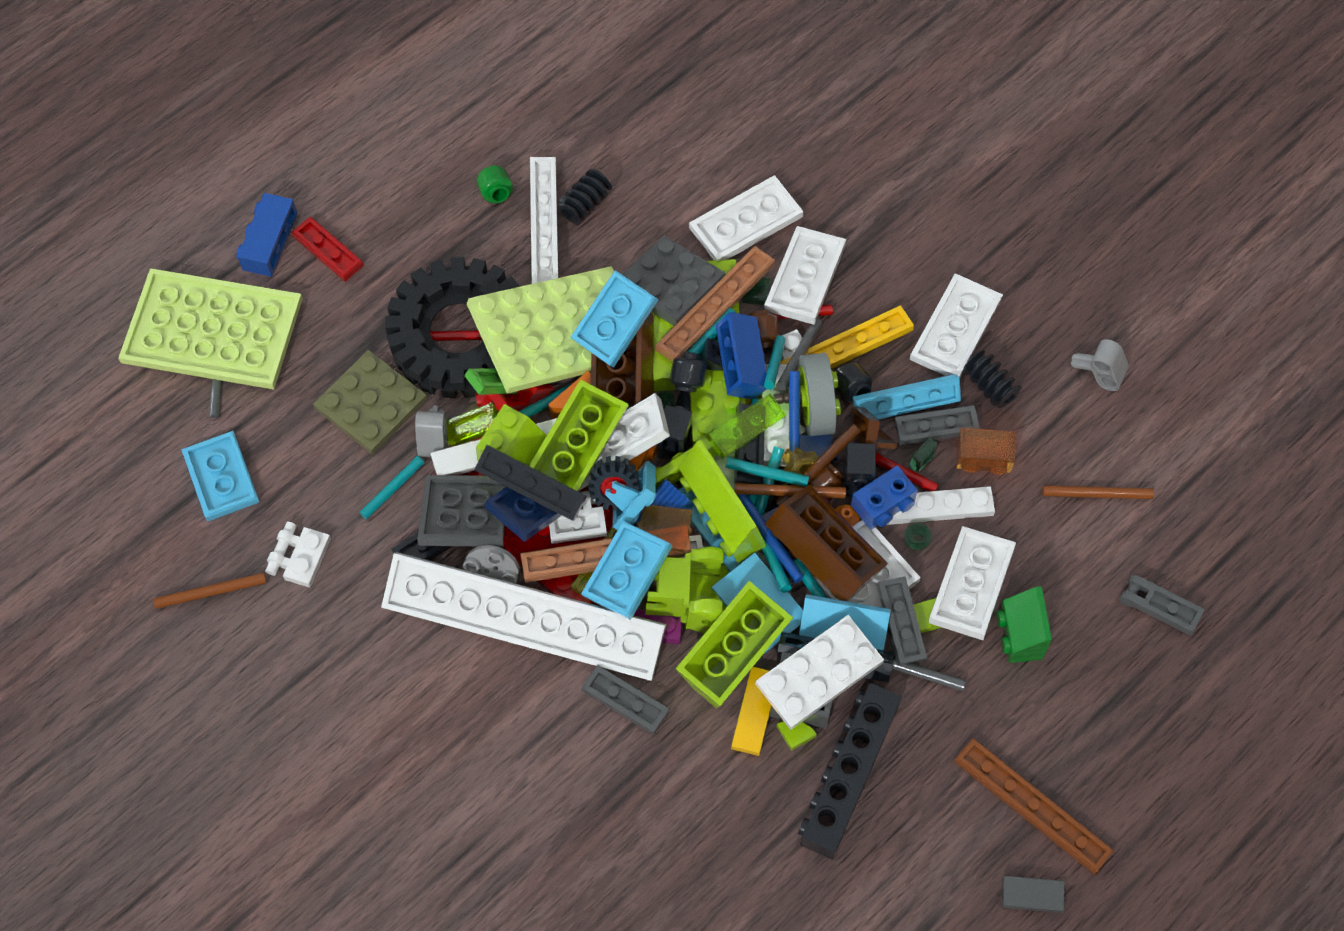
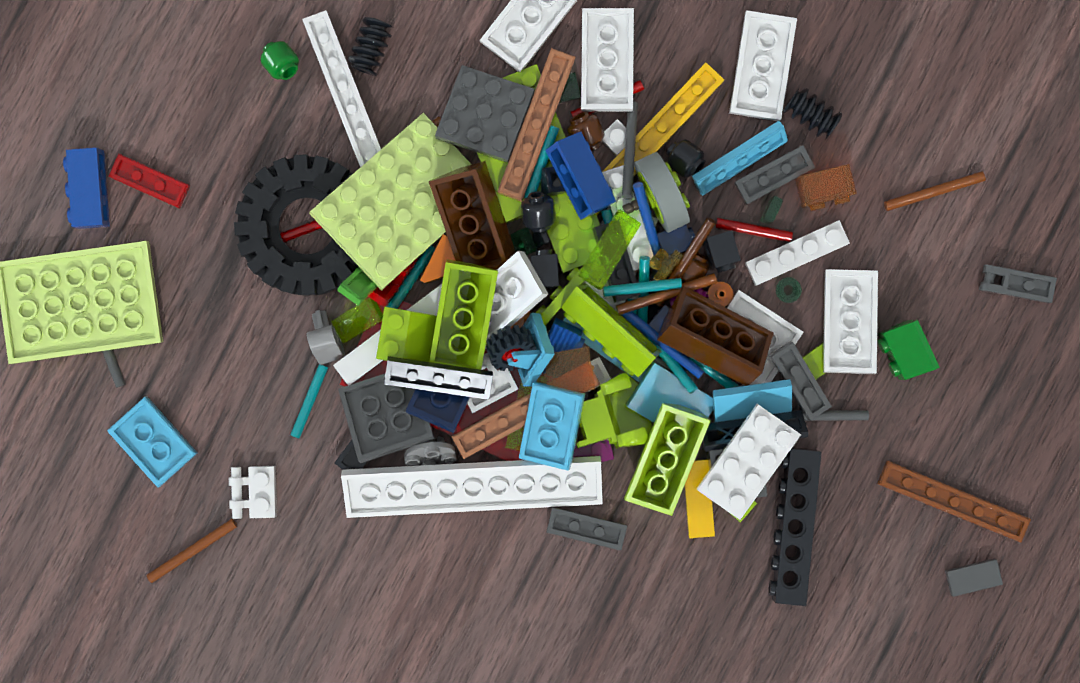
camera: 20 degrees left, 25 degrees up
(370, 402) = (255, 324): olive plate -> none
(614, 318) = (453, 186): medium azure tile -> none
(774, 363) = (612, 171): teal bar -> none
(870, 429) = (720, 209): reddish brown panel -> none
(884, 498) = (752, 271): blue brick -> none
(1107, 364) = (913, 63): light grey beam -> none

